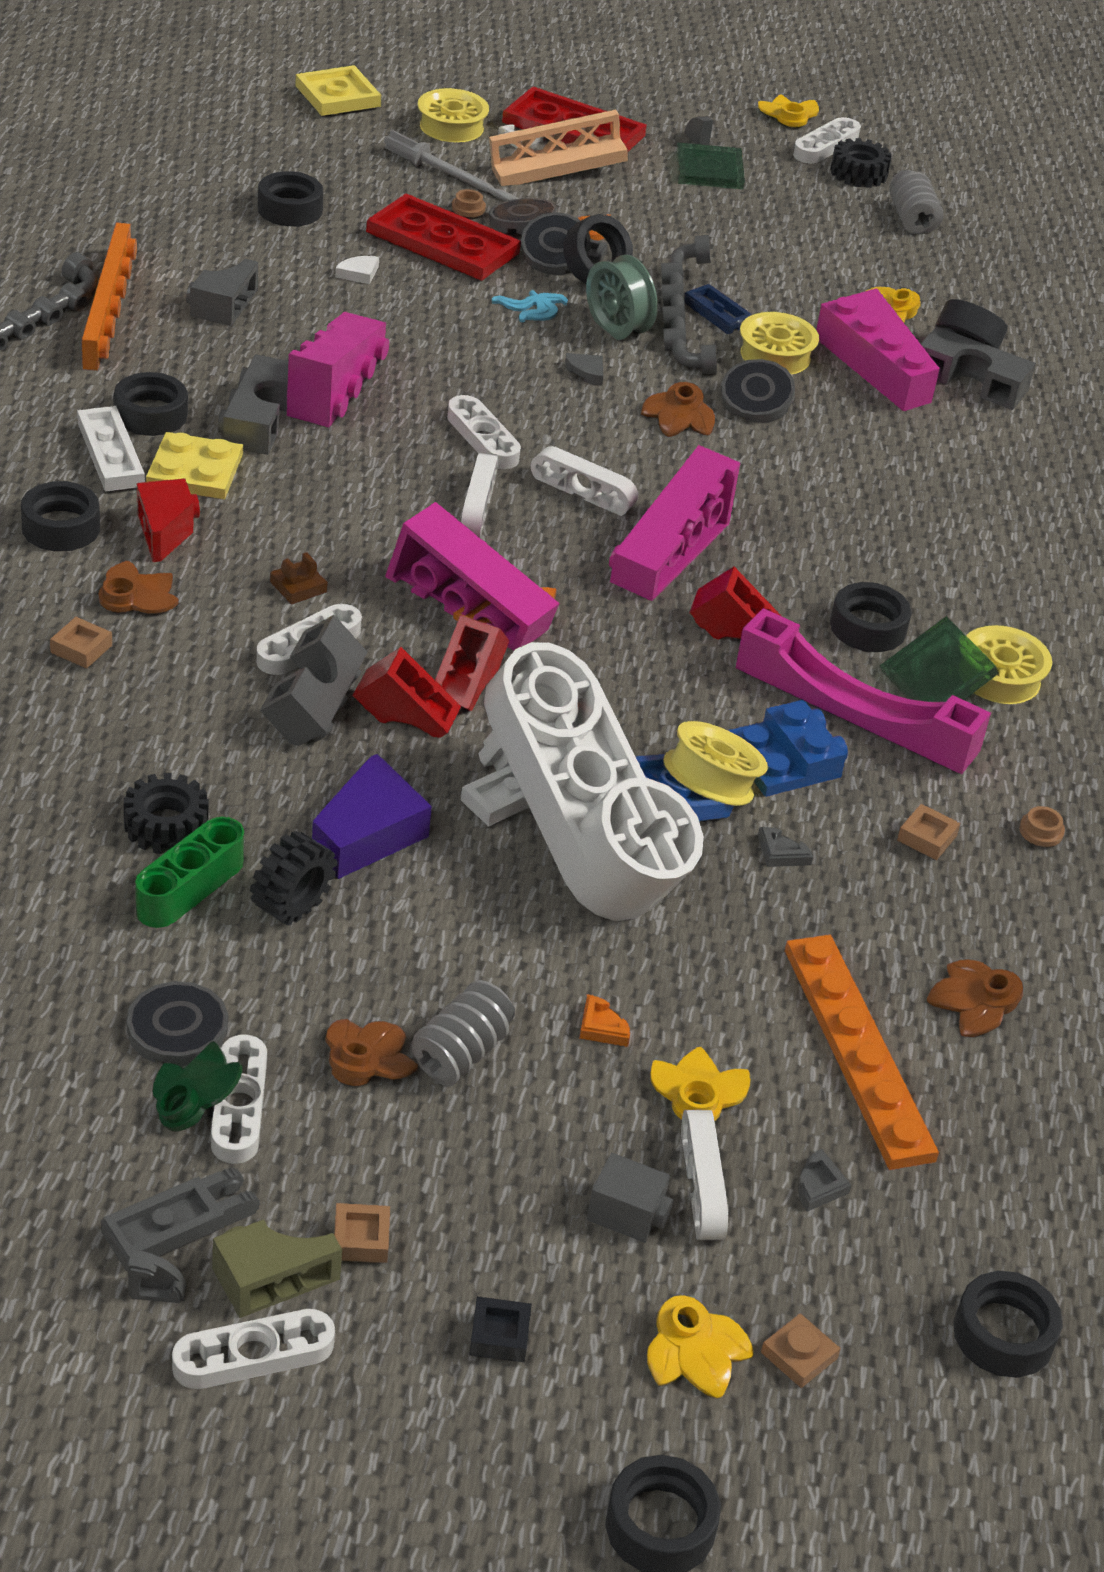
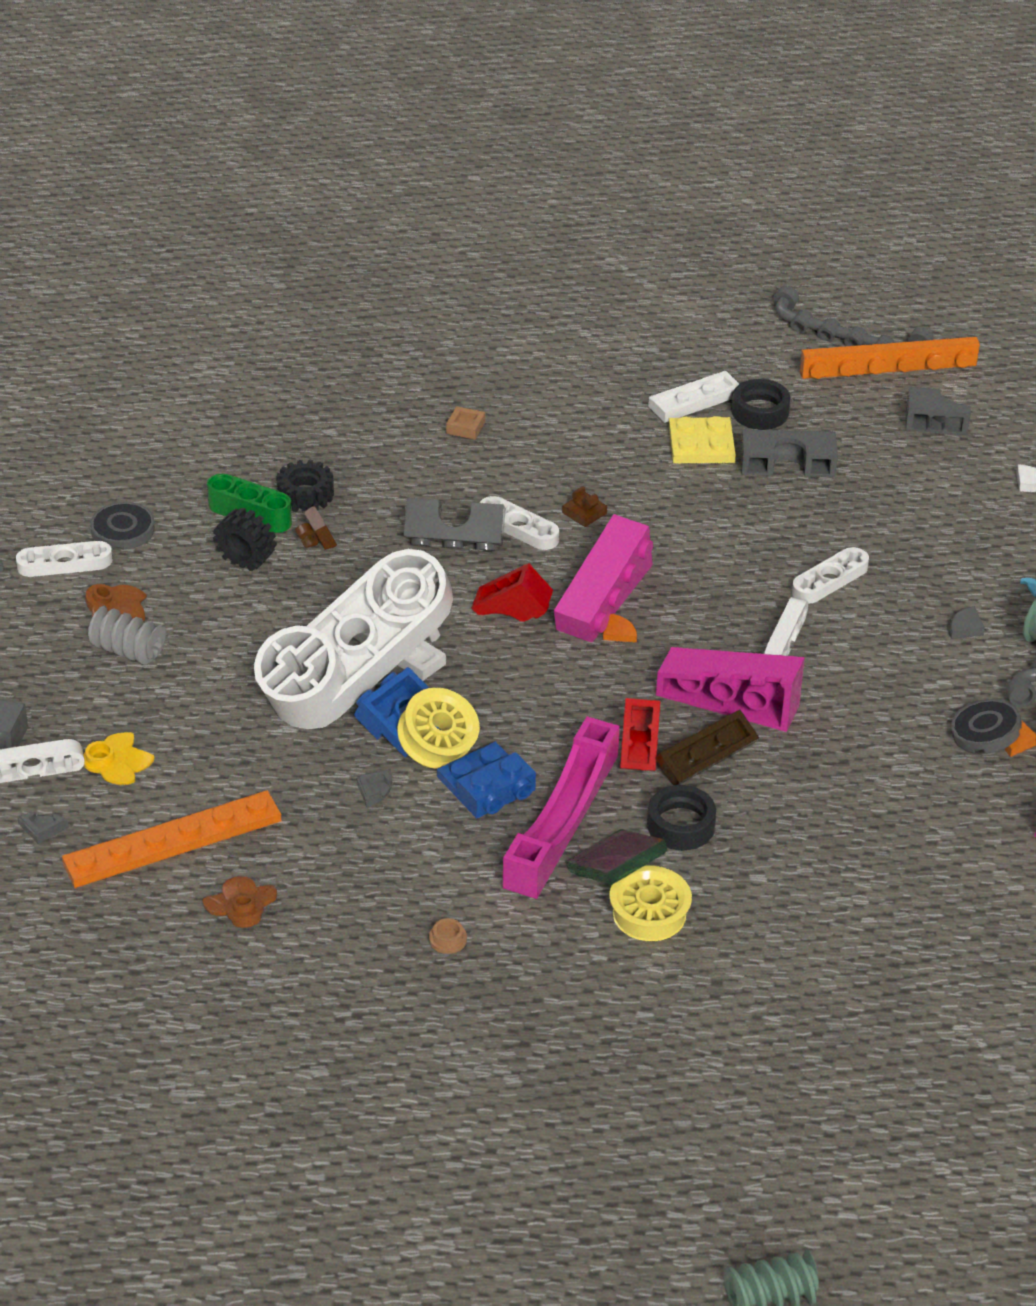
camera: 85 degrees right, 0 degrees up
(60, 534) = (599, 402): black tyre -> none
(129, 590) = (539, 438): dark orange plate -> none
(166, 514) = (618, 431): red slope -> none
(190, 1090) = (53, 534): dark green plate -> none
(274, 813) = (315, 531): none -> reddish brown tile
(334, 367) = (858, 476): dark pink wedge -> none
(371, 817) = (322, 568): dark purple slope -> none
(406, 693) = (462, 567): red arch -> none
(479, 492) = (758, 571): white beam -> none
(603, 1023) = (167, 708): orange tile -> none
(679, 409) = (933, 685): dark orange plate -> none
(765, 575) = (707, 748): none -> dark brown plate
(928, 831) = (415, 864): medium nougat plate -> none

